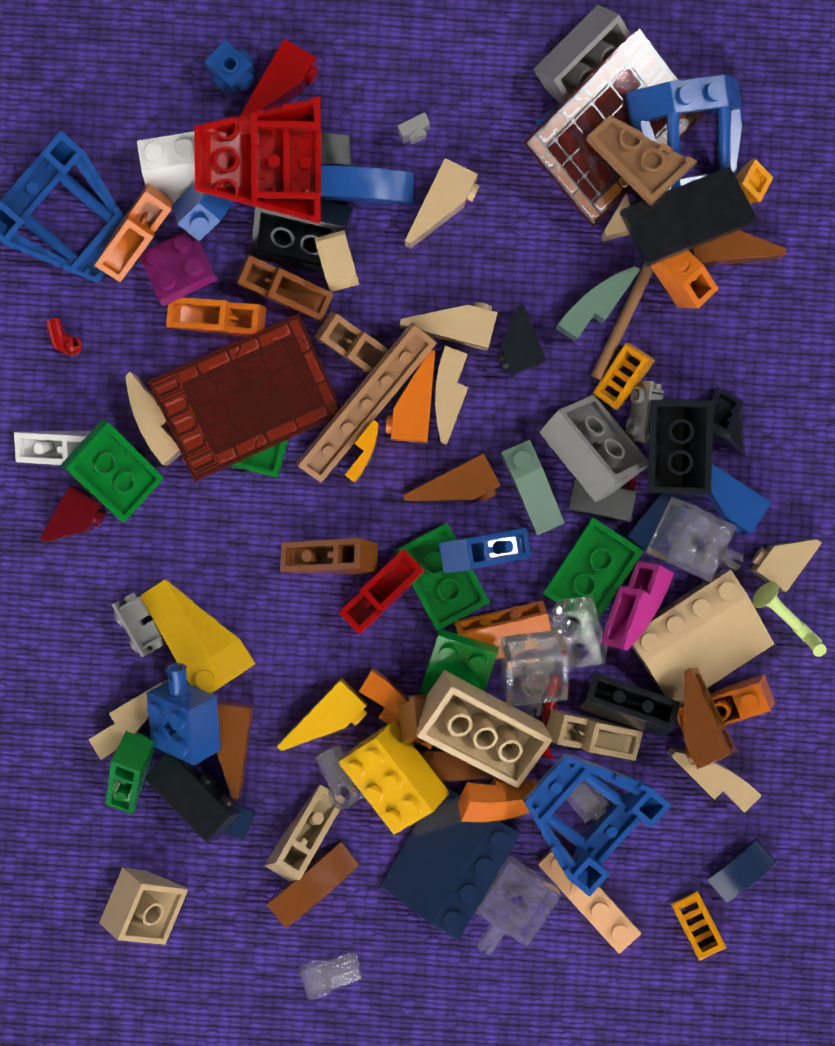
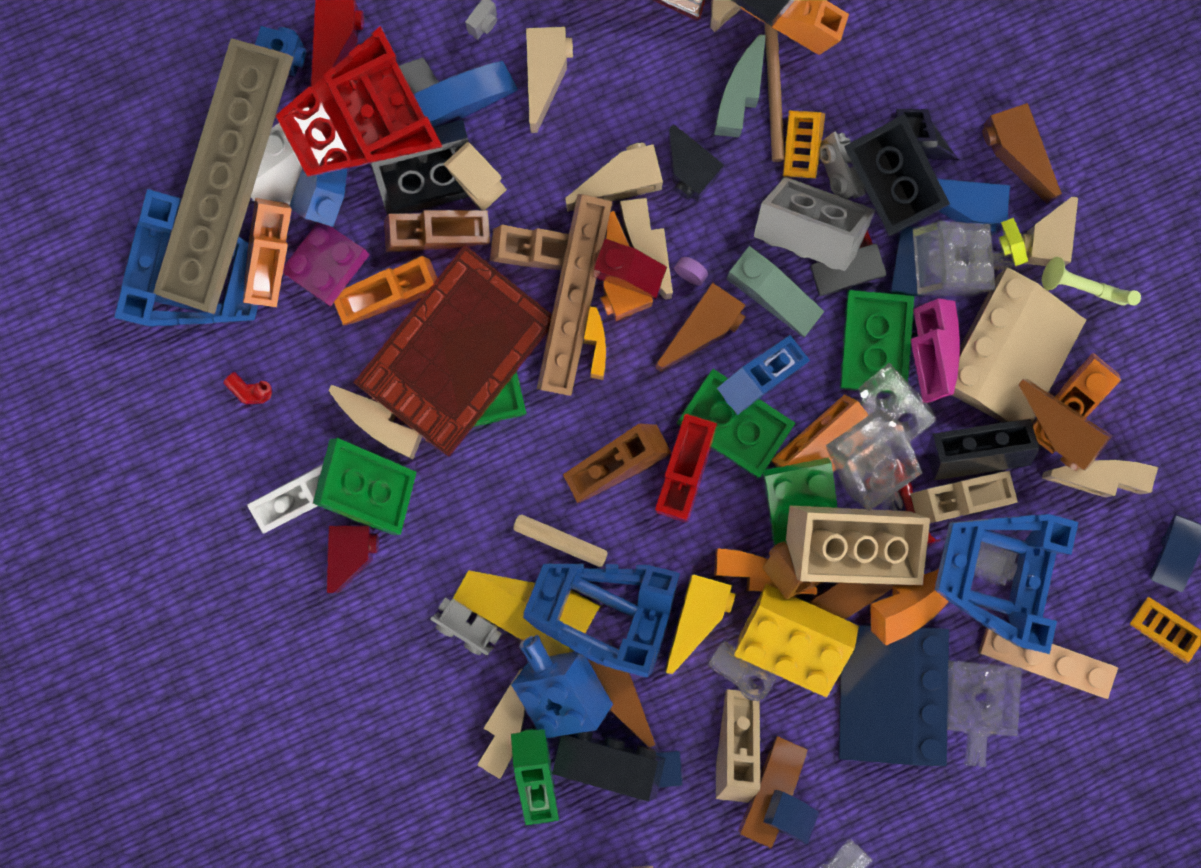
camera: 30 degrees left, 5 degrees down
(128, 151) = (223, 175): none -> dark tan plate
(250, 595) = (560, 540): none -> tan axle
(262, 721) = (650, 615): none -> blue windscreen
(315, 912) = (791, 816): none -> dark blue slope
(420, 407) = (629, 268): none -> dark red slope
(473, 432) = (691, 271): none -> medium lavender tile
(746, 551) = (1012, 242): none -> neon yellow plate
(800, 473) = (1020, 148): none -> dark orange slope

